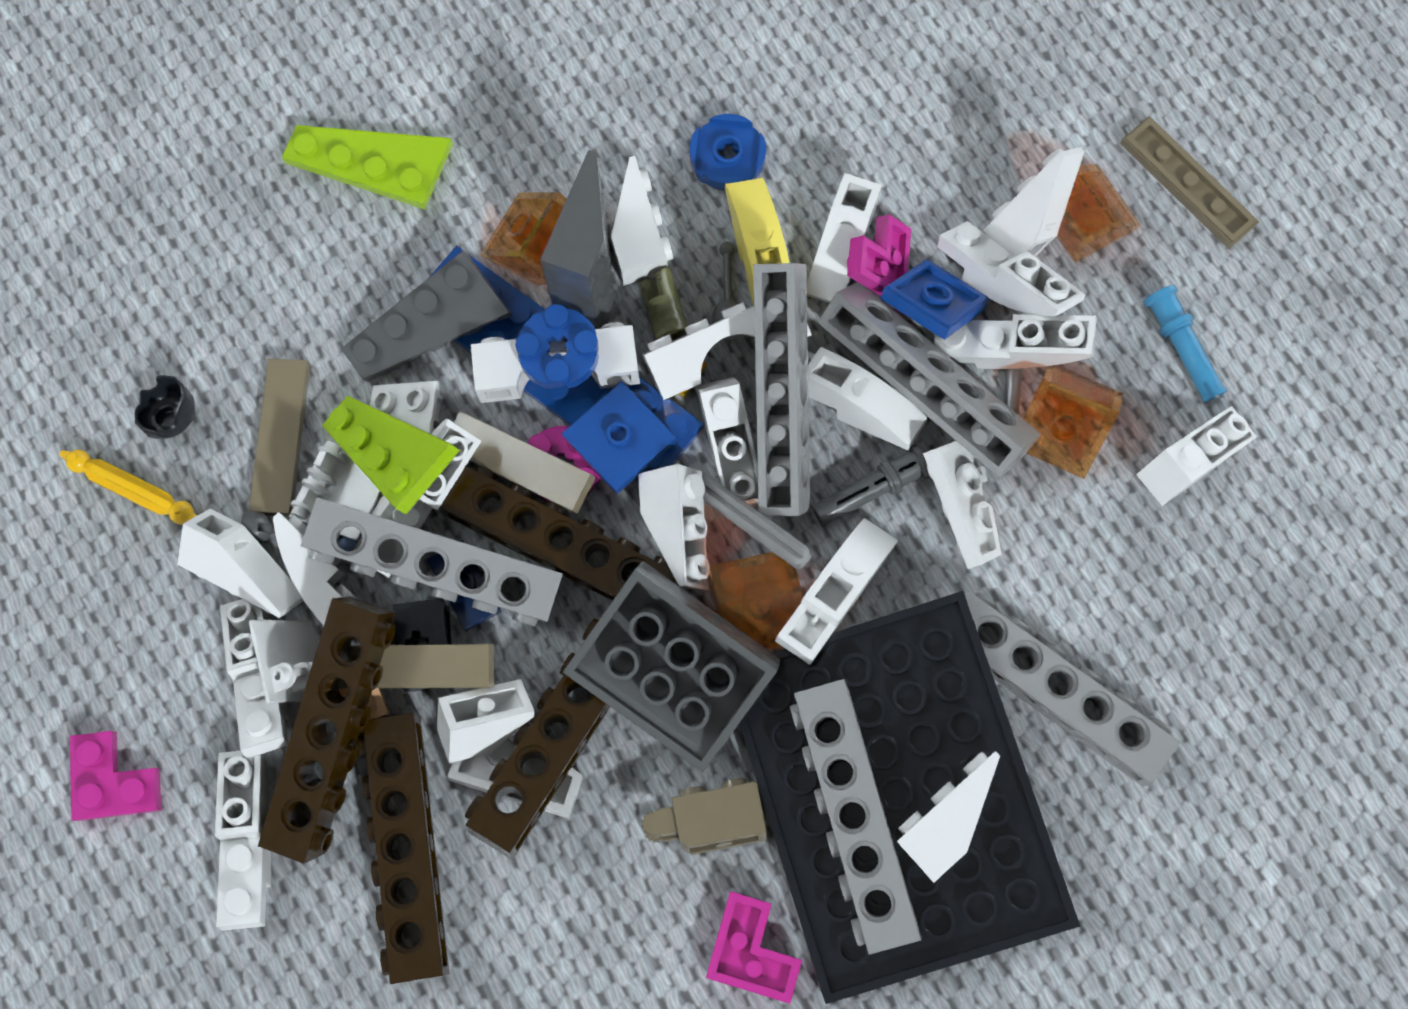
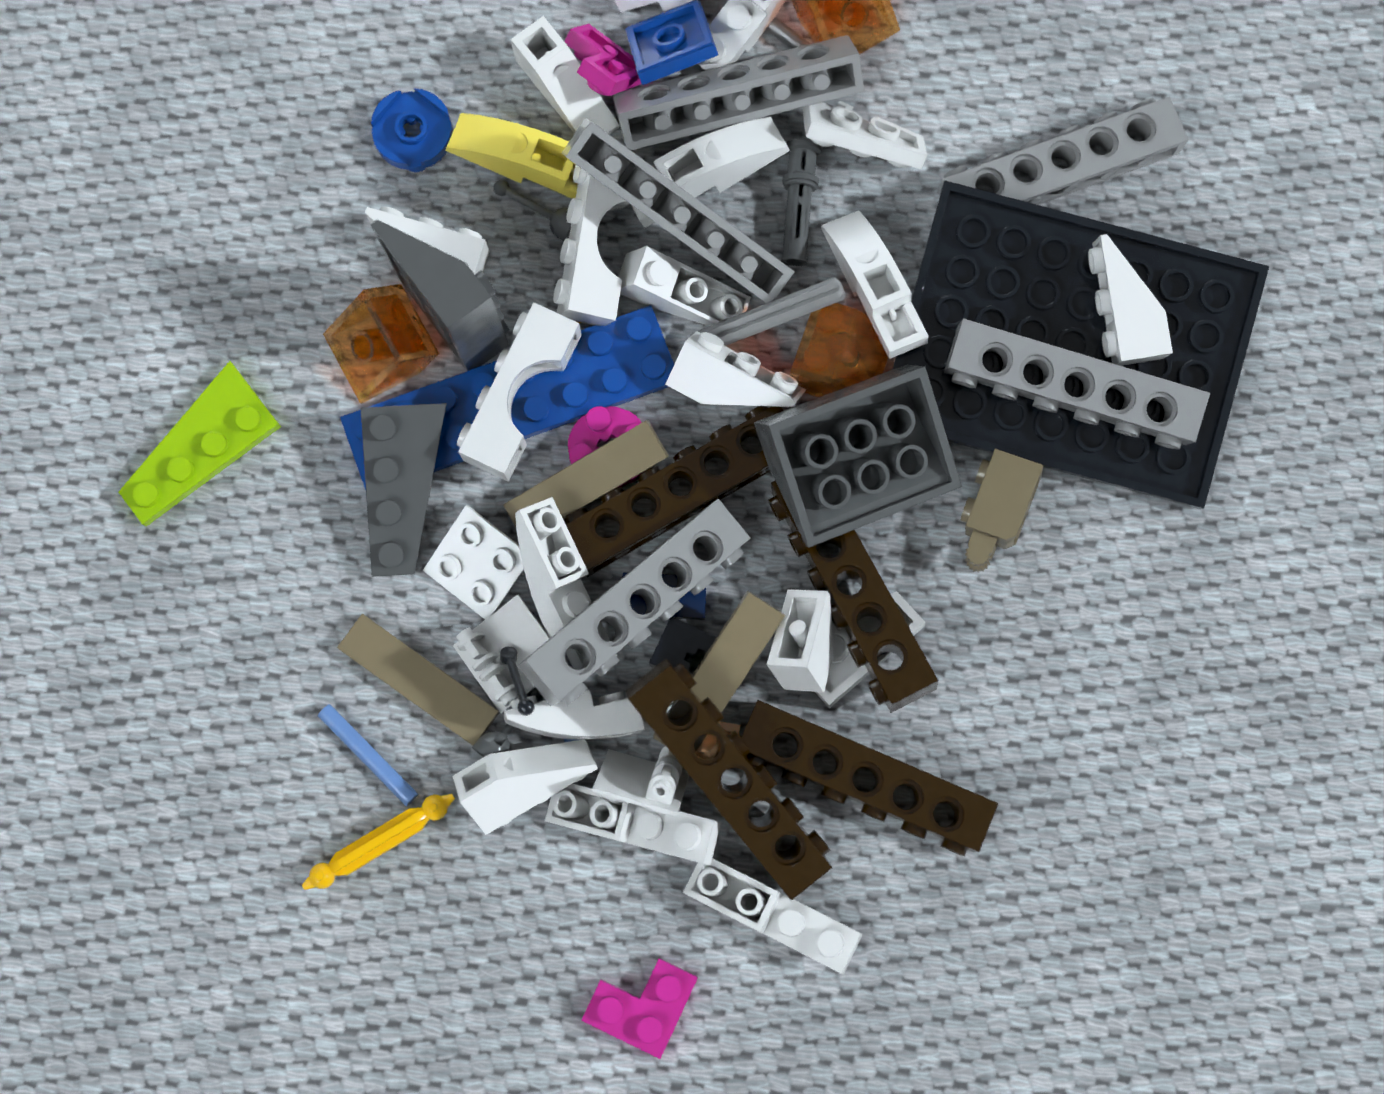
camera: 60 degrees left, 5 degrees up
(164, 397) = (311, 758): black hair -> none
(197, 436) = (368, 755): none -> medium blue bar
(334, 492) = (508, 656): none -> black hinge
(389, 451) = (513, 580): lime wing -> none
(552, 325) = (526, 354): blue plate -> none
(619, 437) = (621, 380): blue plate -> none
(664, 305) = (528, 273): olive hinge -> none
(741, 960) = (1124, 554): dark pink plate -> none

